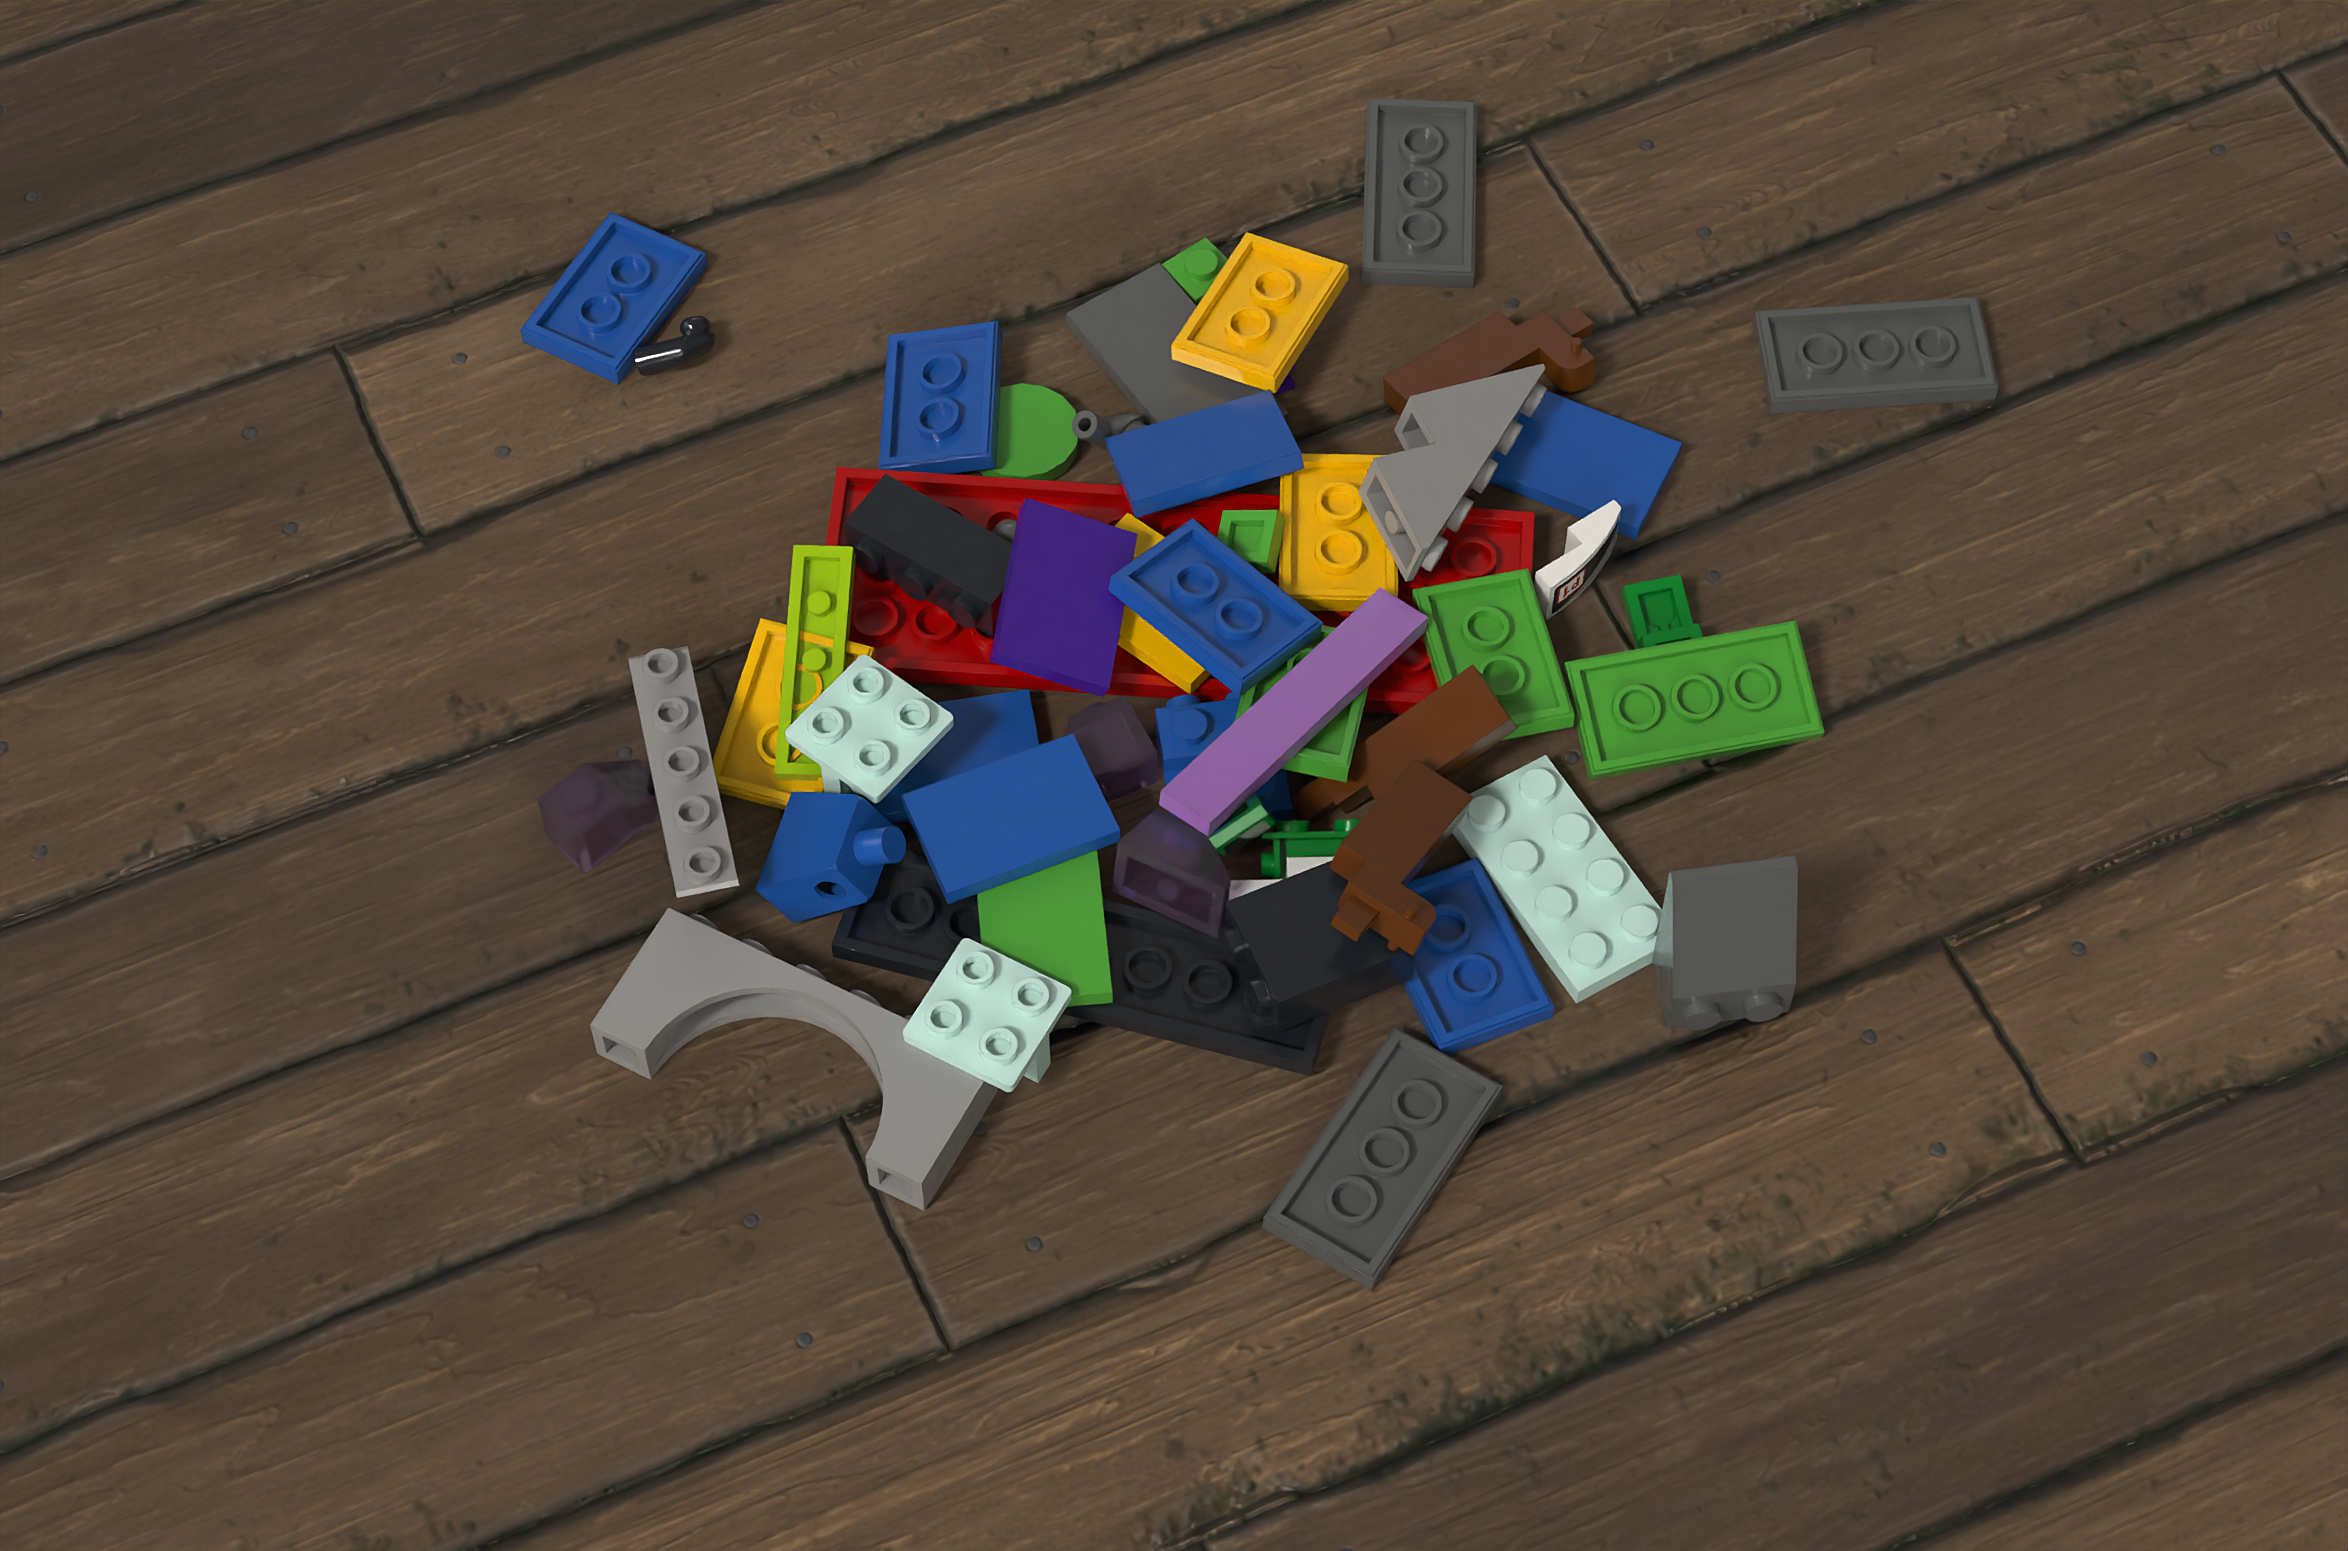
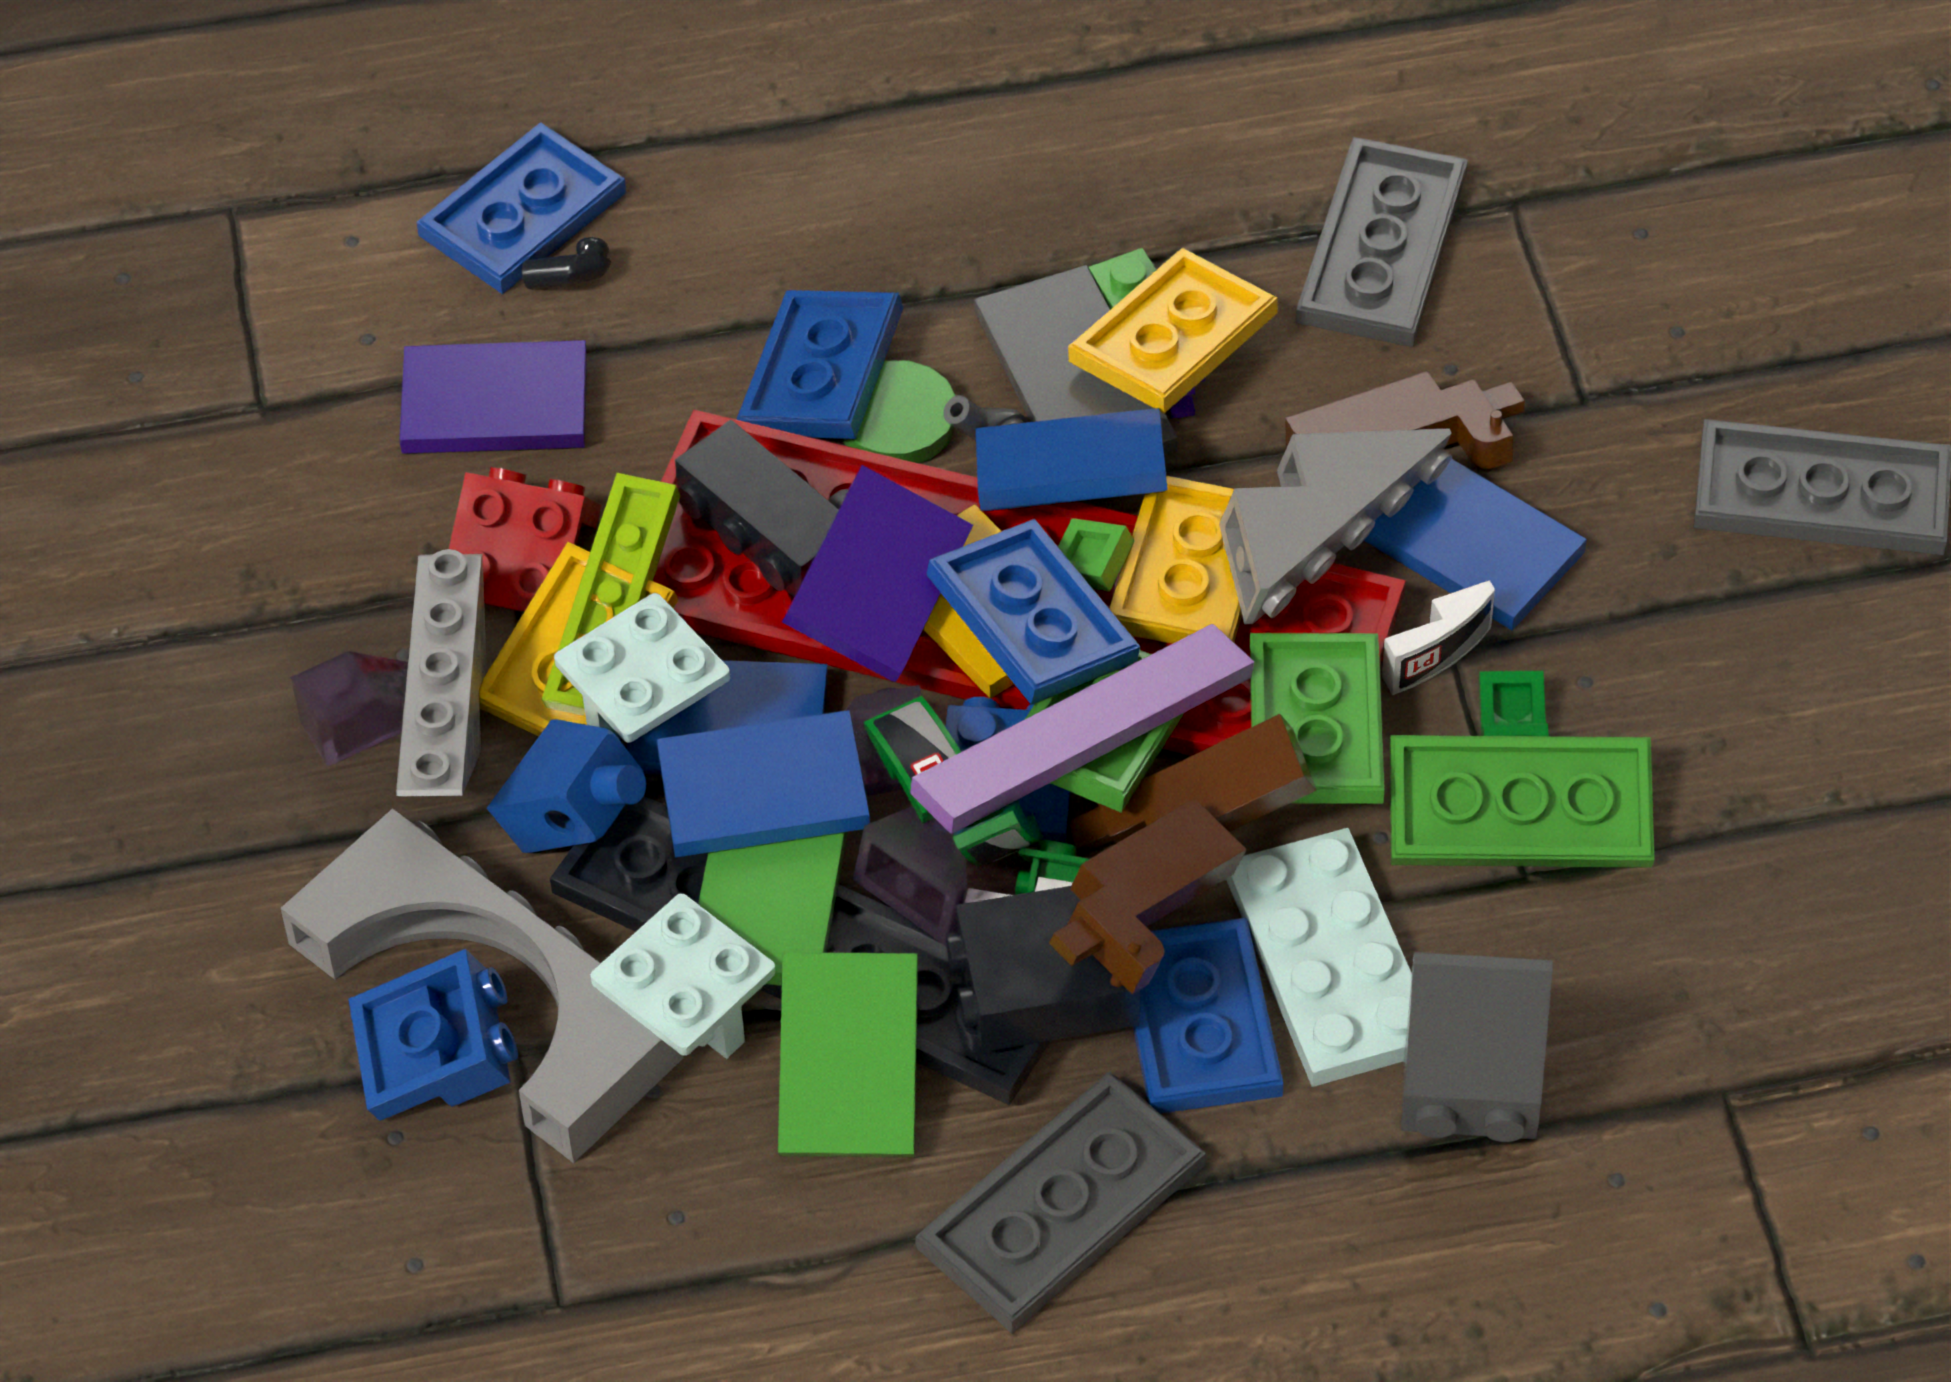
camera: 15 degrees right, 5 degrees down
(641, 486) = (493, 397): none -> dark purple tile
(708, 613) = (518, 530): none -> red bracket
(764, 1118) = (432, 1036): none -> blue plate
(1141, 757) = (910, 742): none -> slope
(1158, 1060) = (848, 1055): none -> bright green tile

